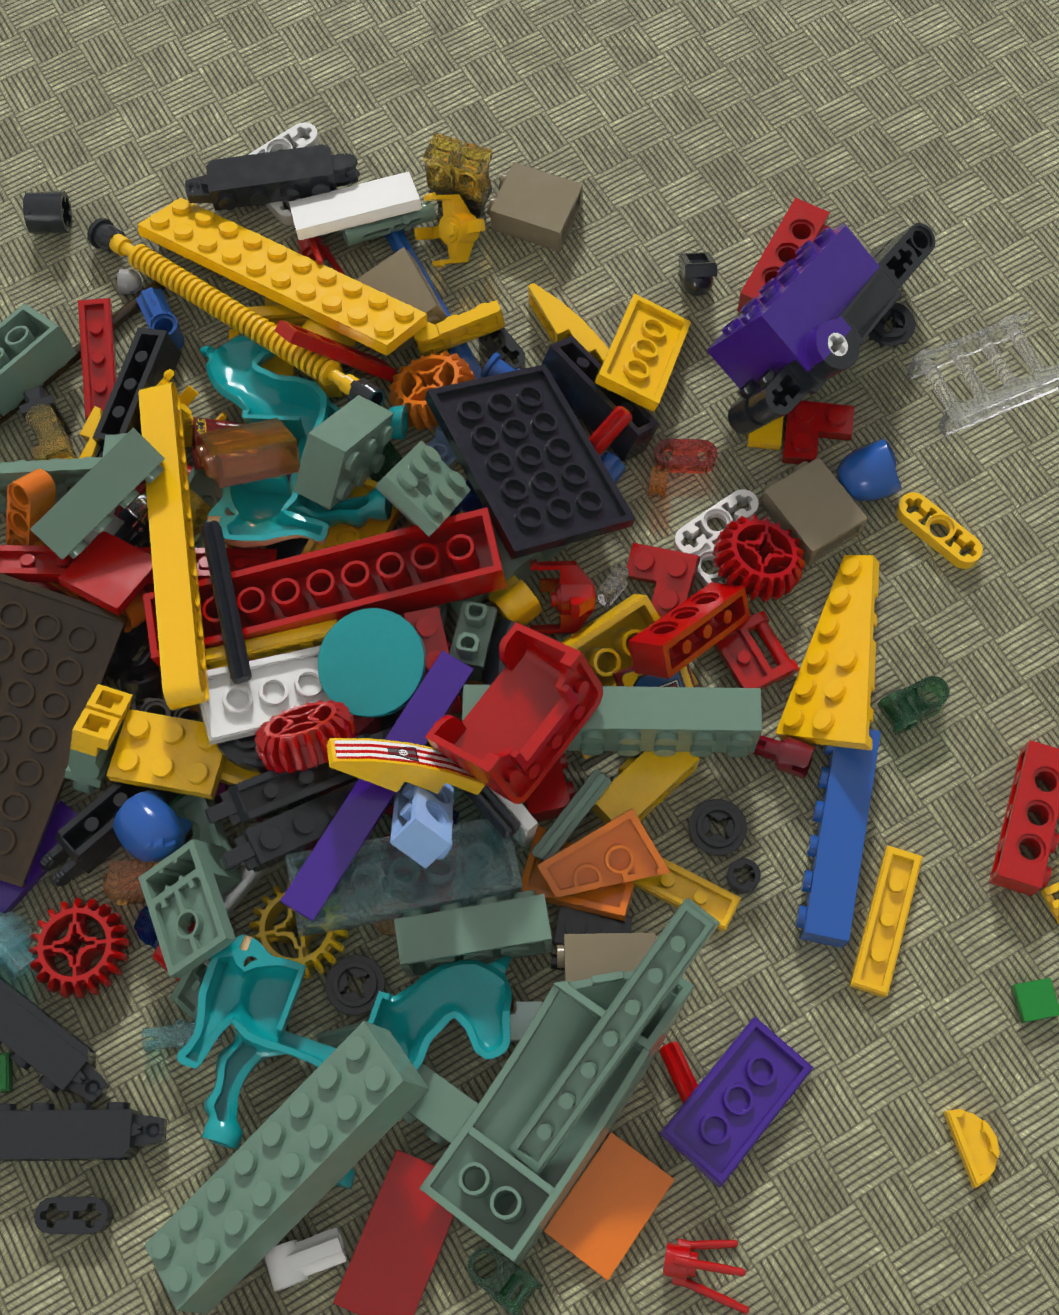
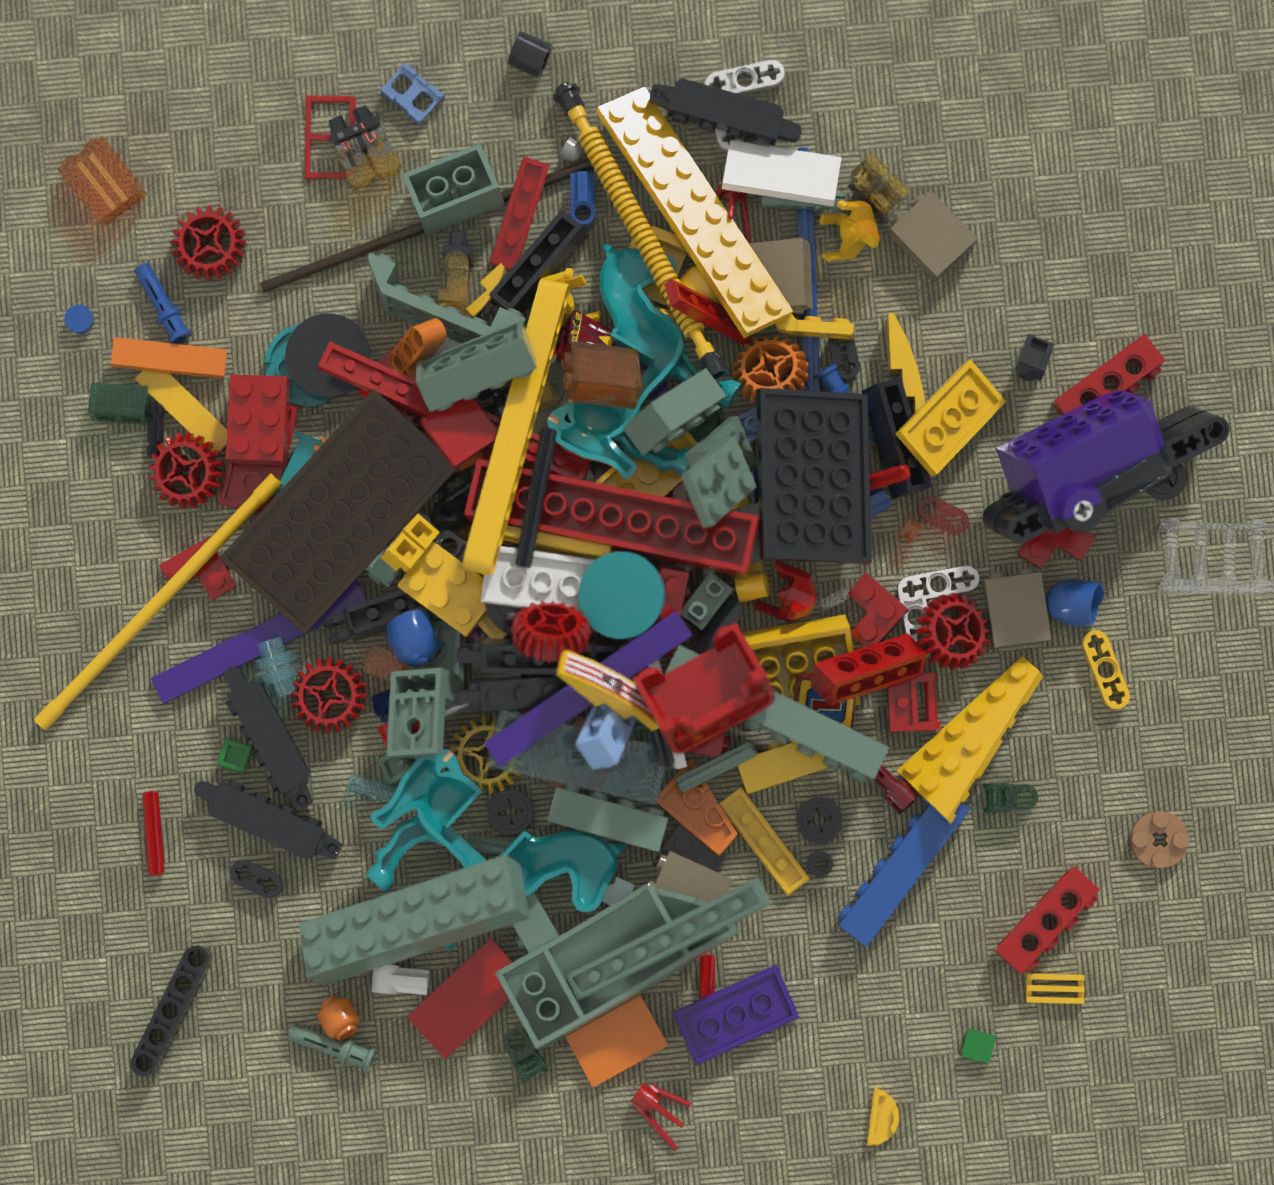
camera: 25 degrees right, 15 degrees up
(604, 857) = (723, 807): orange wing -> none
(886, 921) = (904, 942): yellow tile -> none

